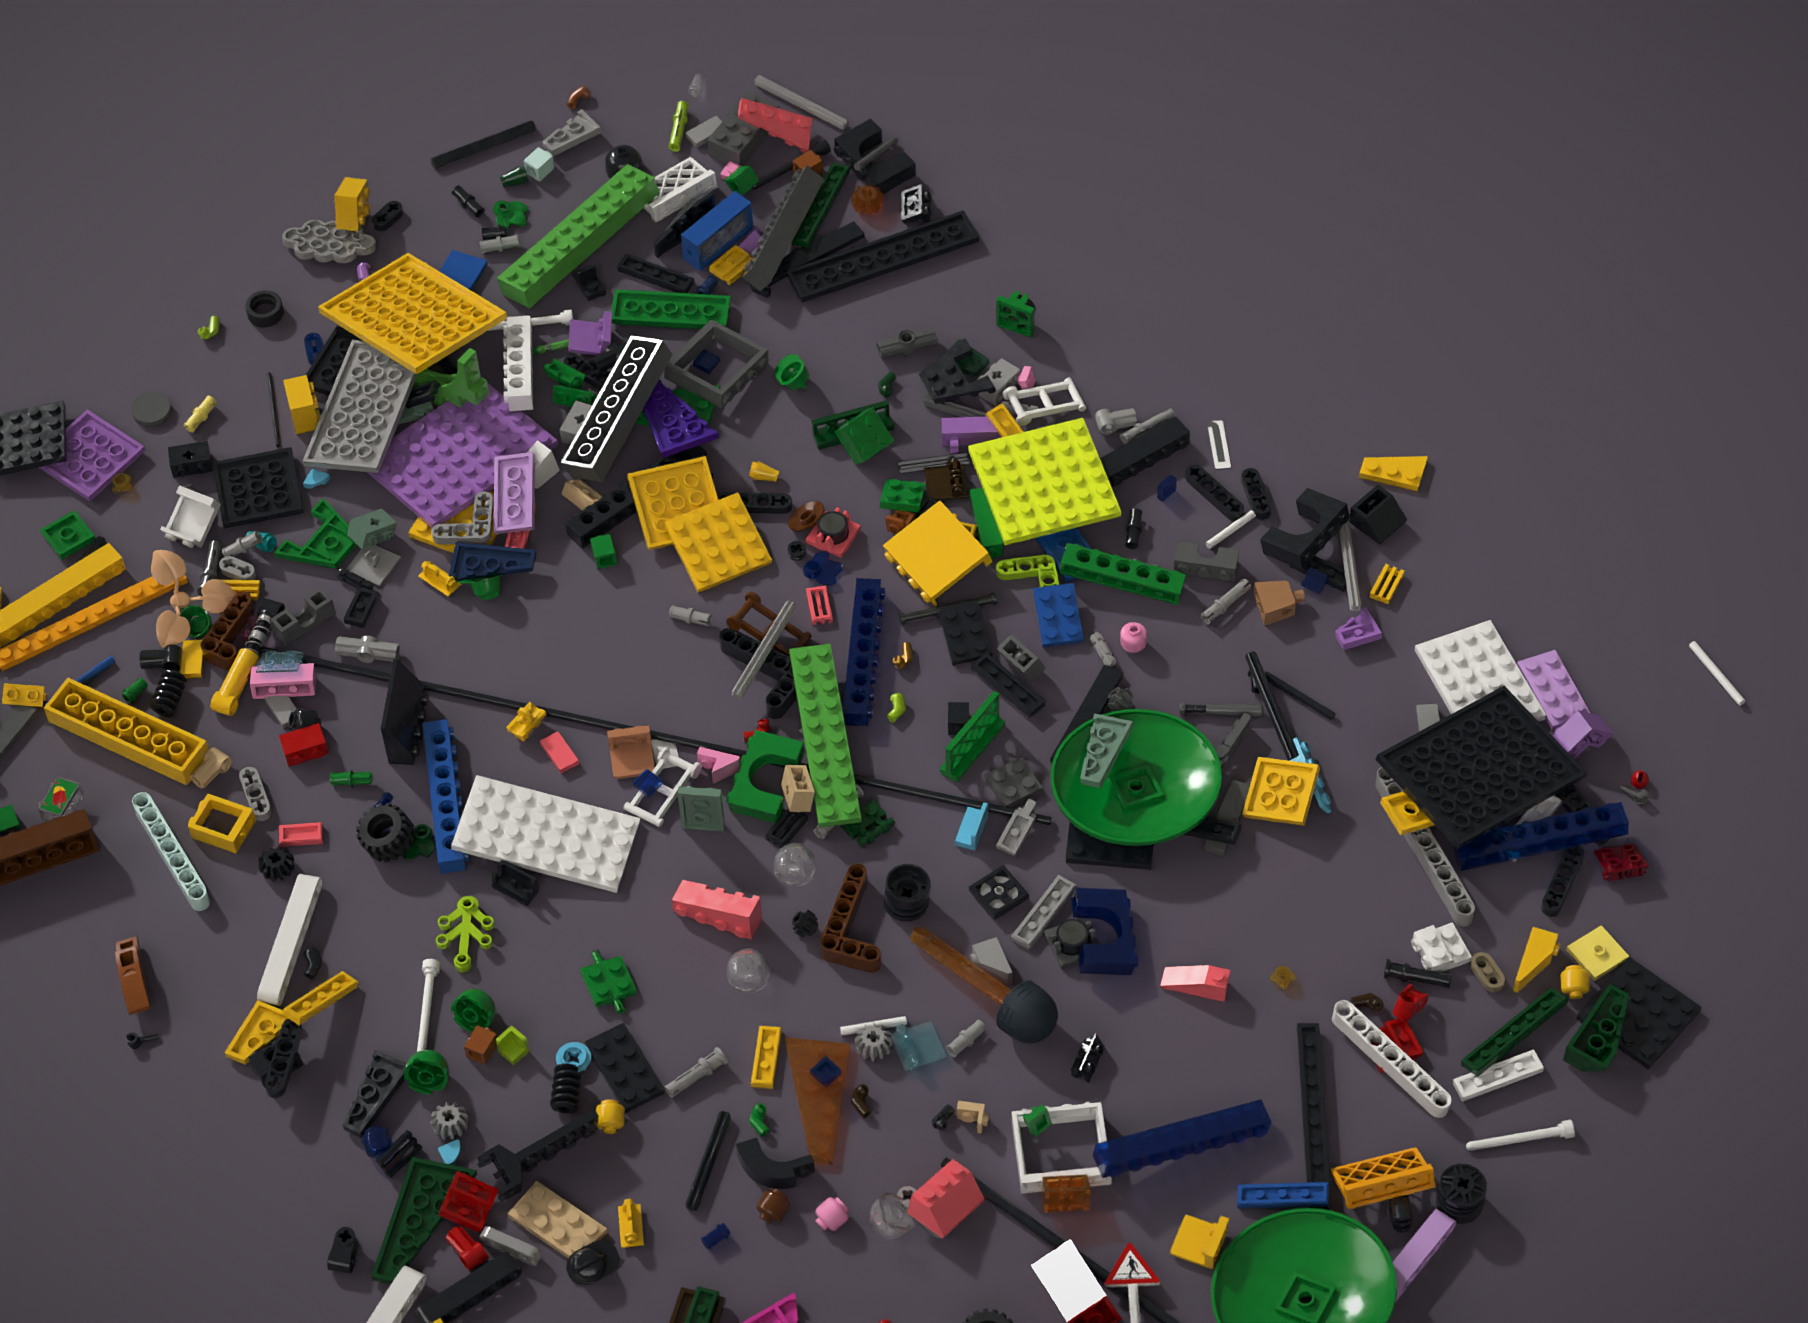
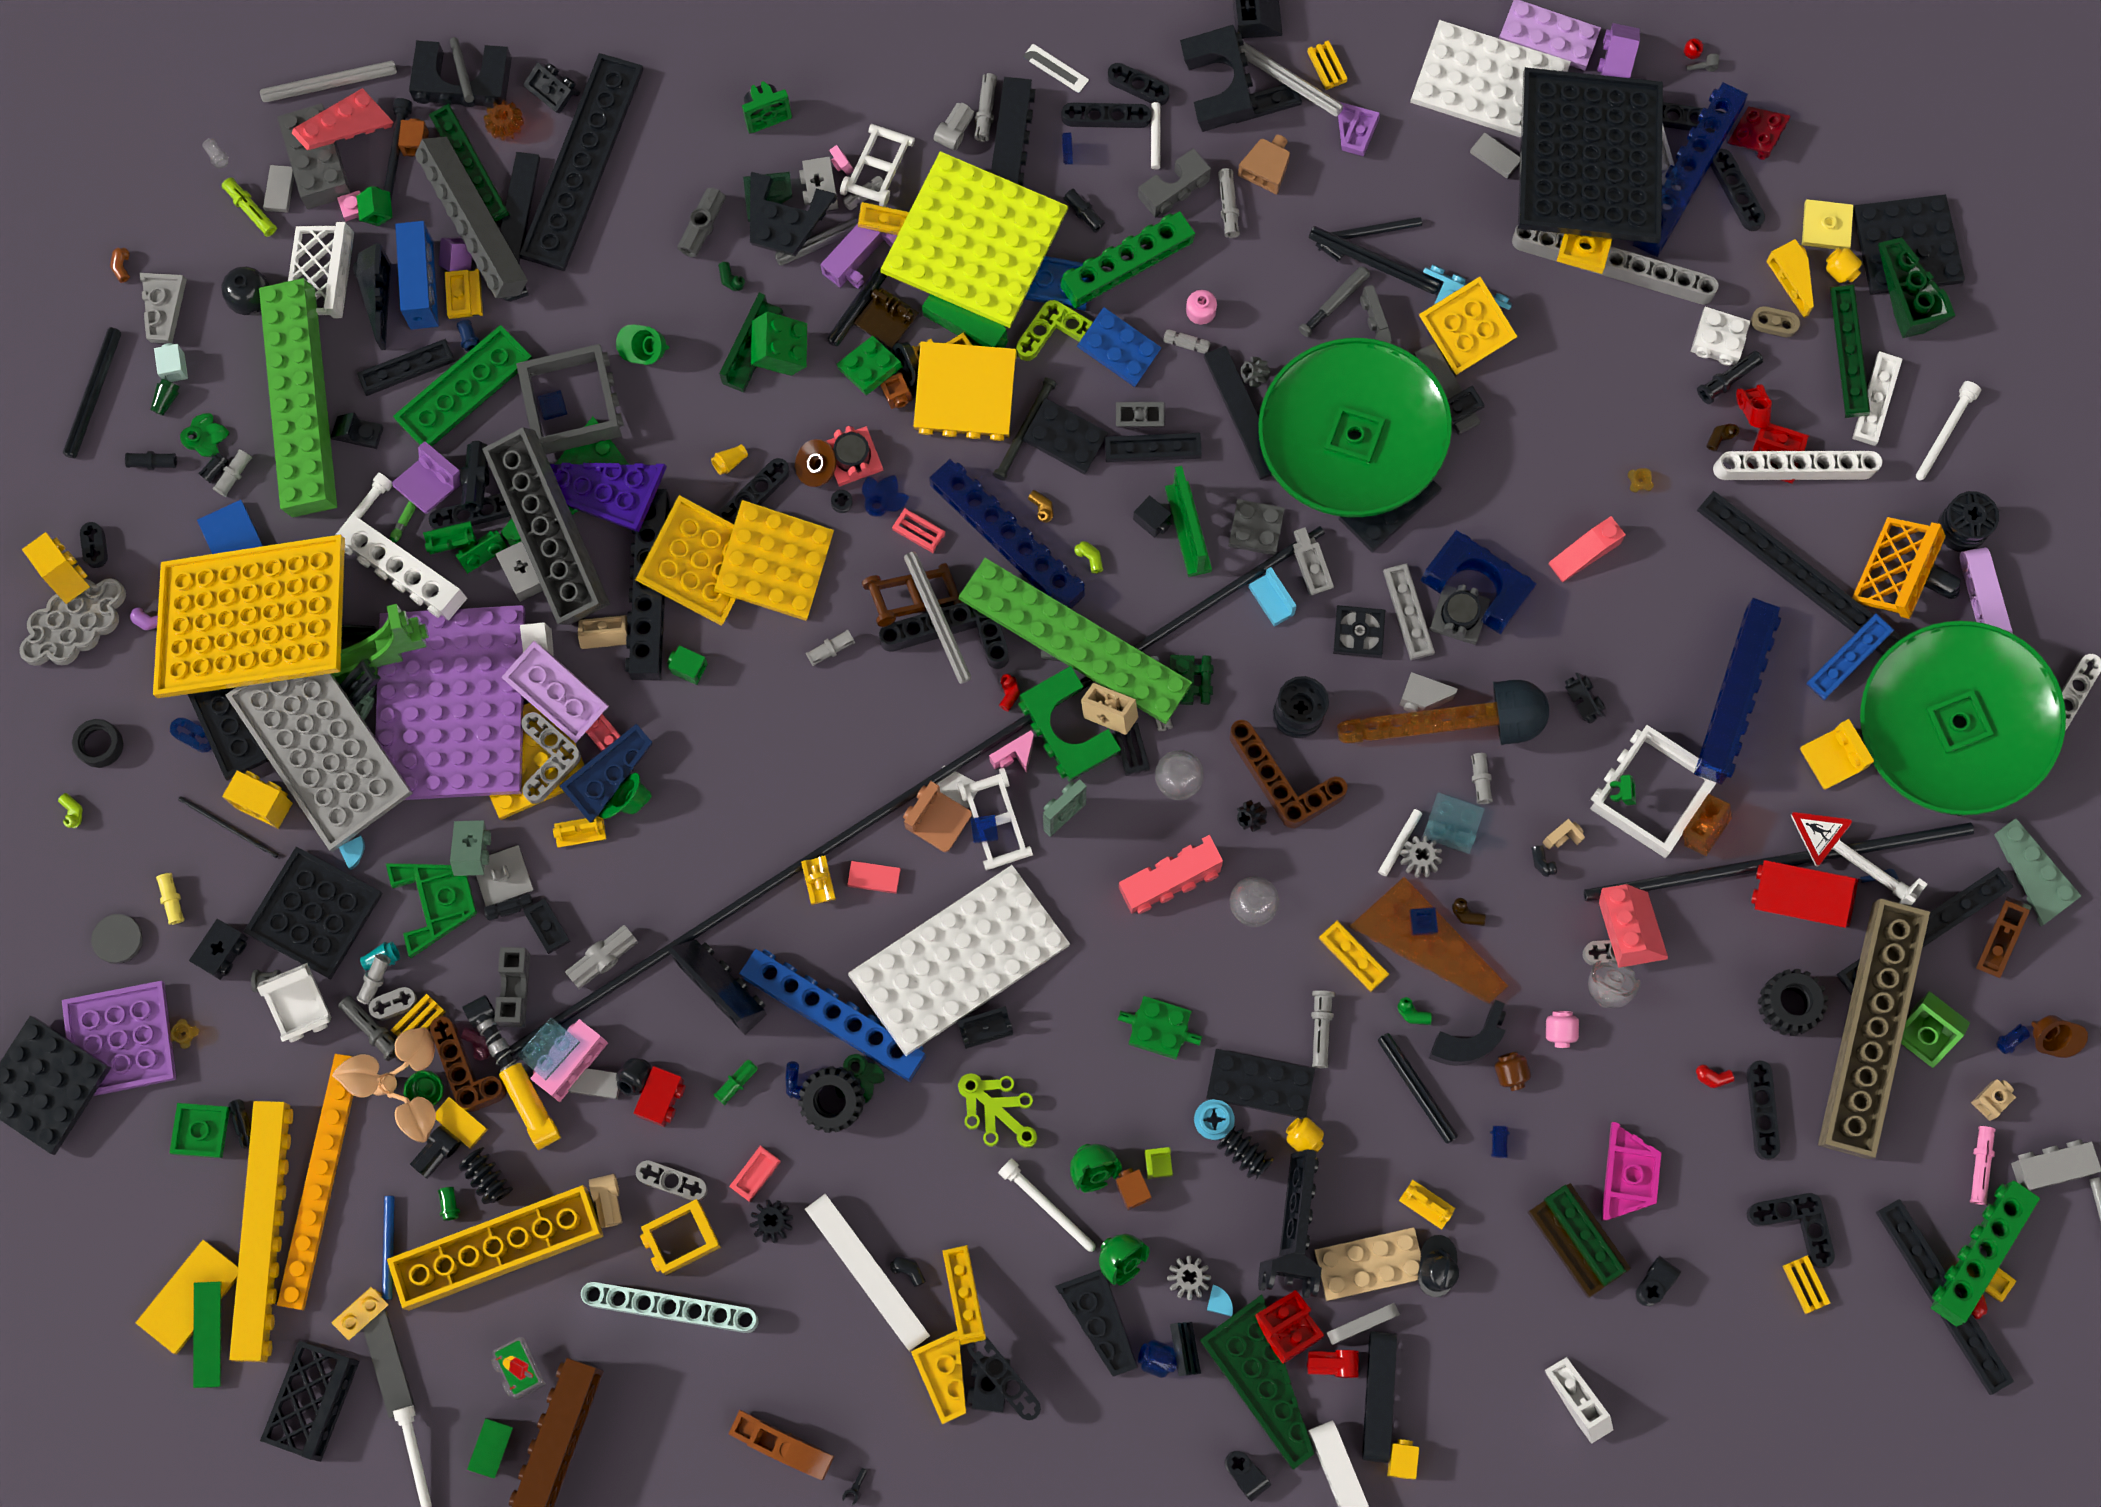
camera: 50 degrees left, 20 degrees up
(1104, 747) = (1304, 424): sand green wing -> none
(1314, 580) = (1274, 116): clear blue tile -> none

